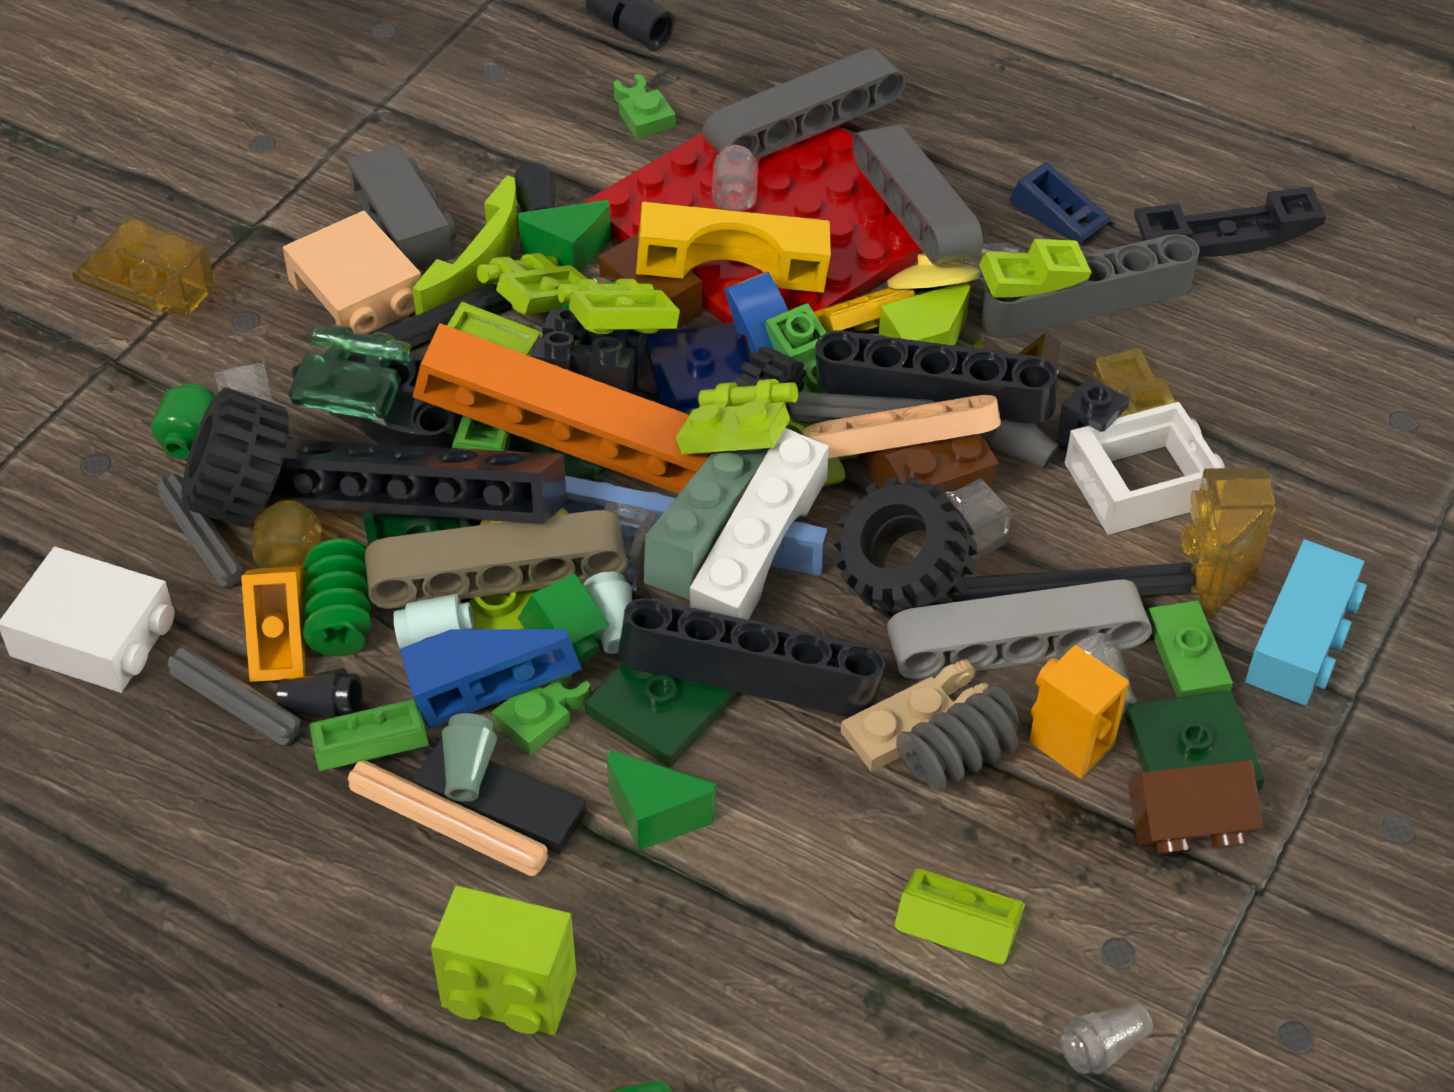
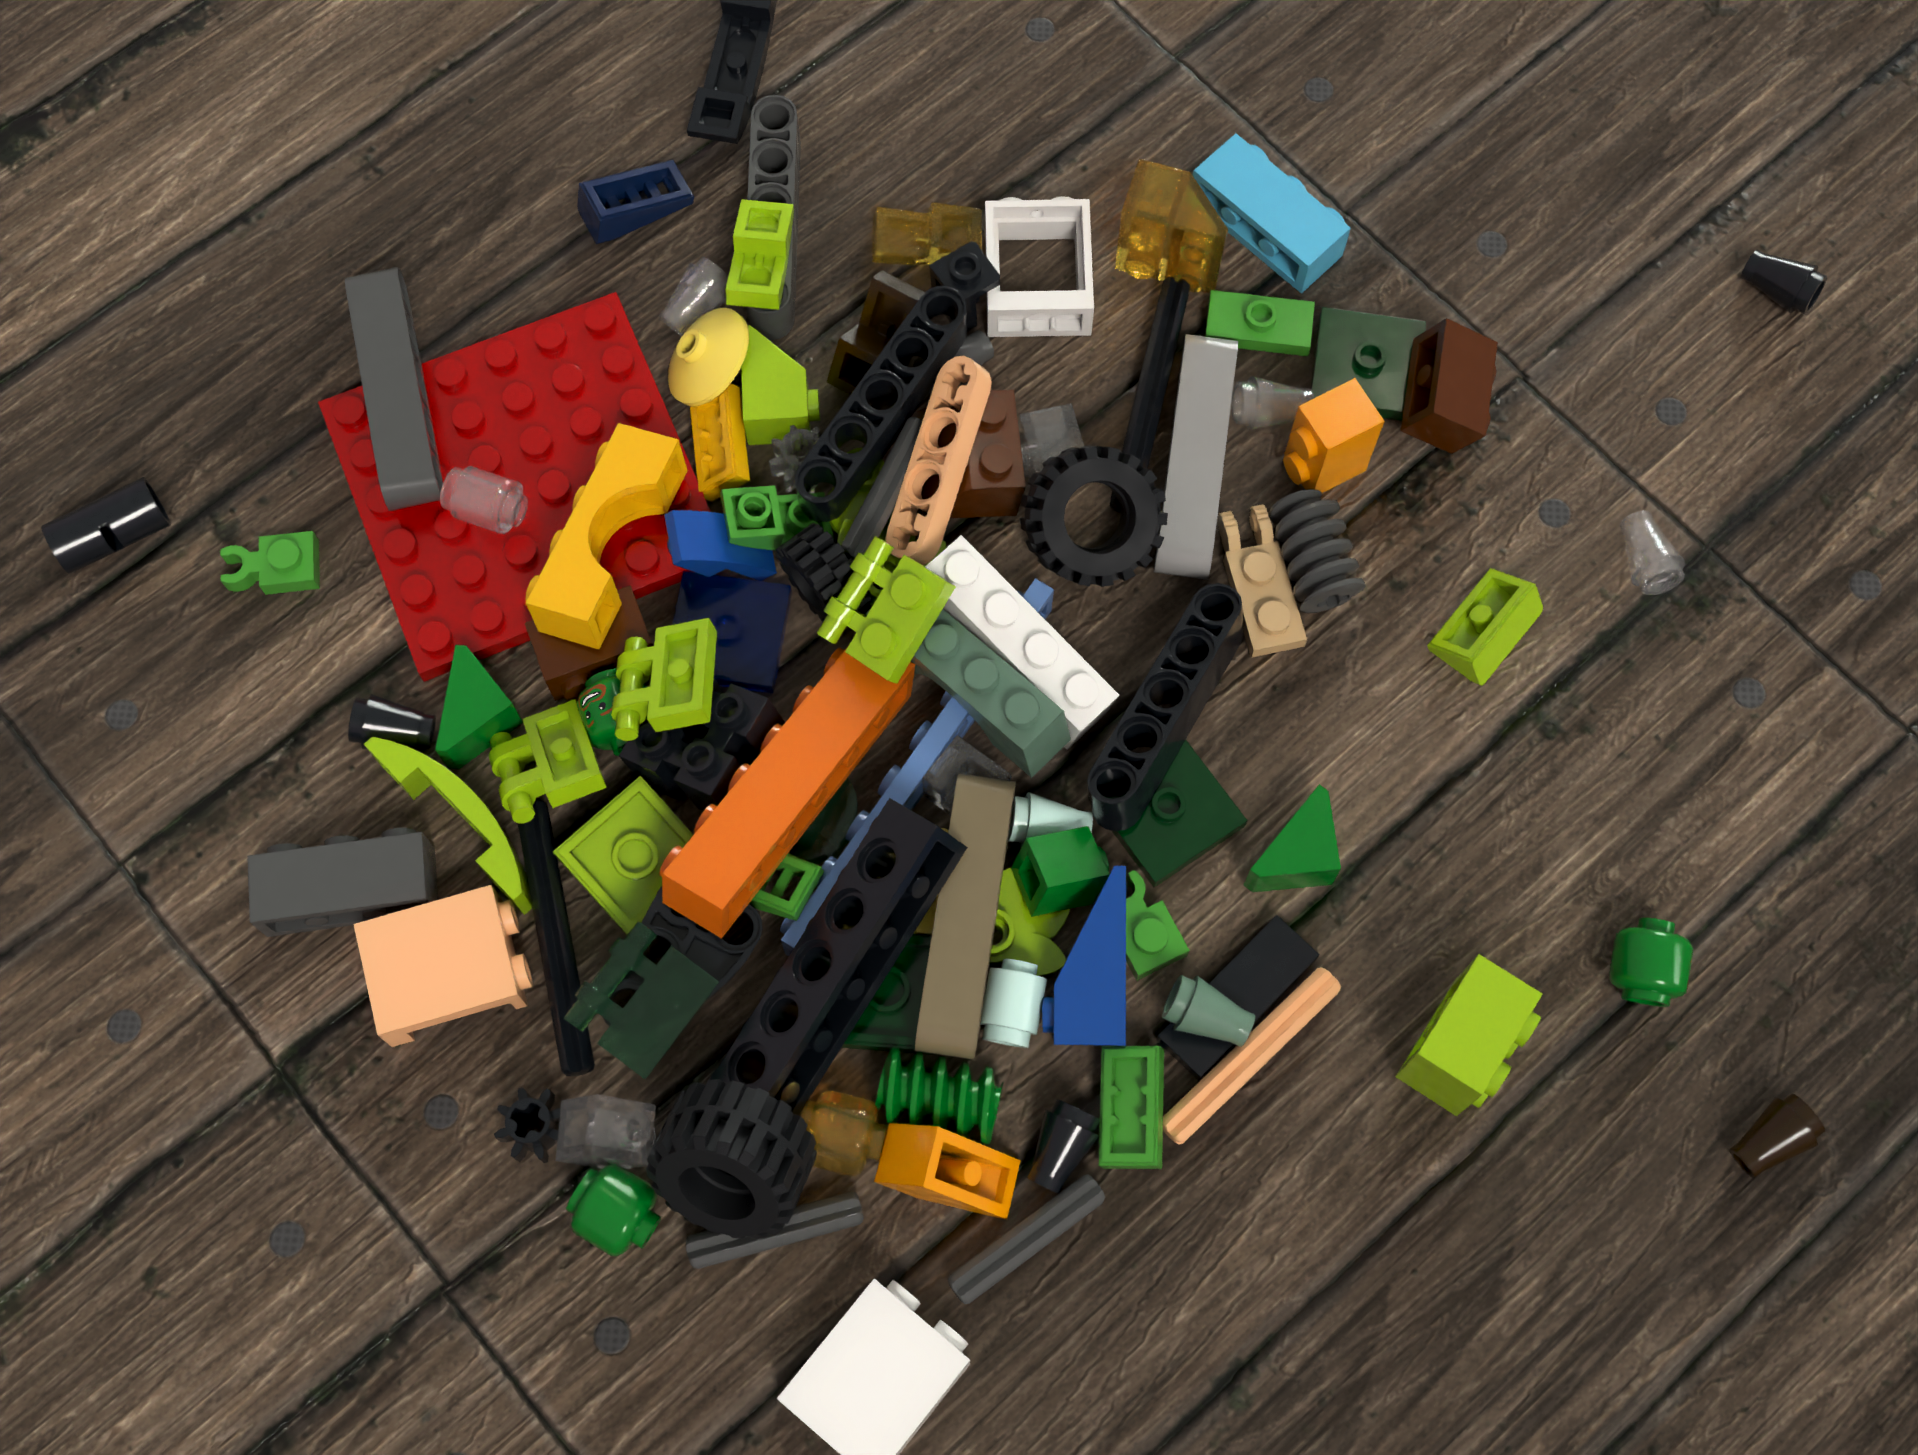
camera: 70 degrees left, 20 degrees up
(150, 268) = (339, 1213): clear yellow slope -> none
(243, 349) = (532, 1109): none -> black gear
(917, 194) = (601, 322): dark grey beam -> none

